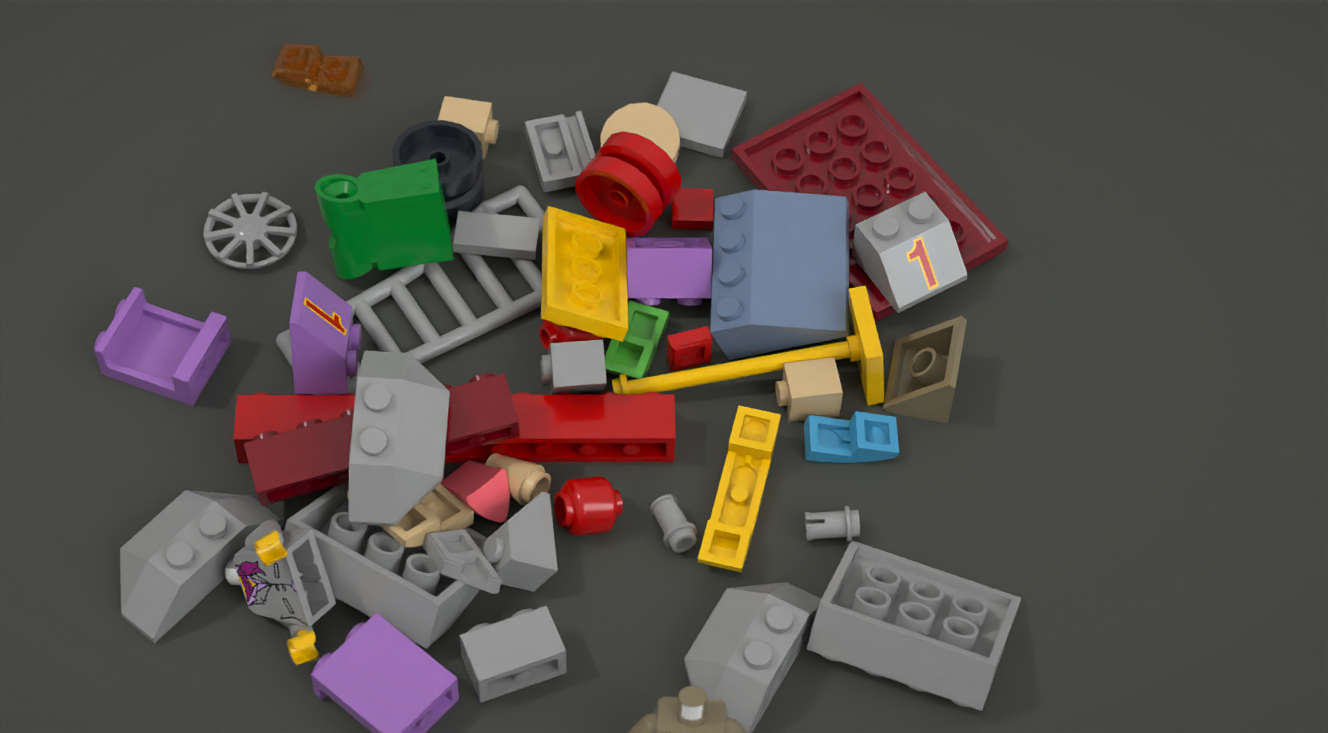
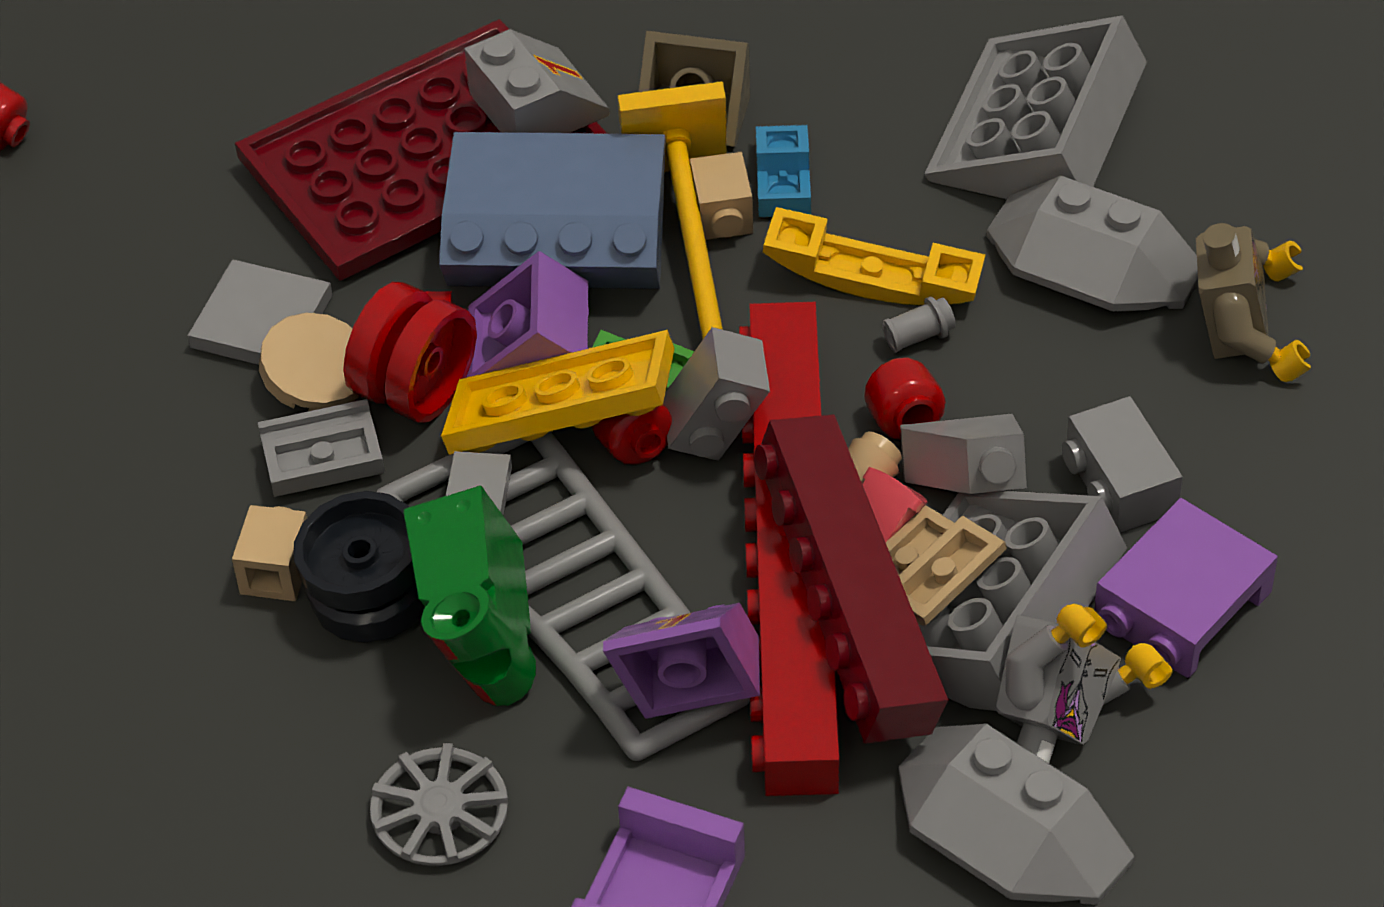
camera: 85 degrees left, 5 degrees down
(309, 69) = (134, 746): clear orange slope -> none
(395, 438) = (869, 529): light grey wedge -> none
(461, 559) = (1013, 498): light grey tile -> none
(689, 349) = (661, 304): red tile -> none
(832, 524) = (909, 173): light grey pin -> none

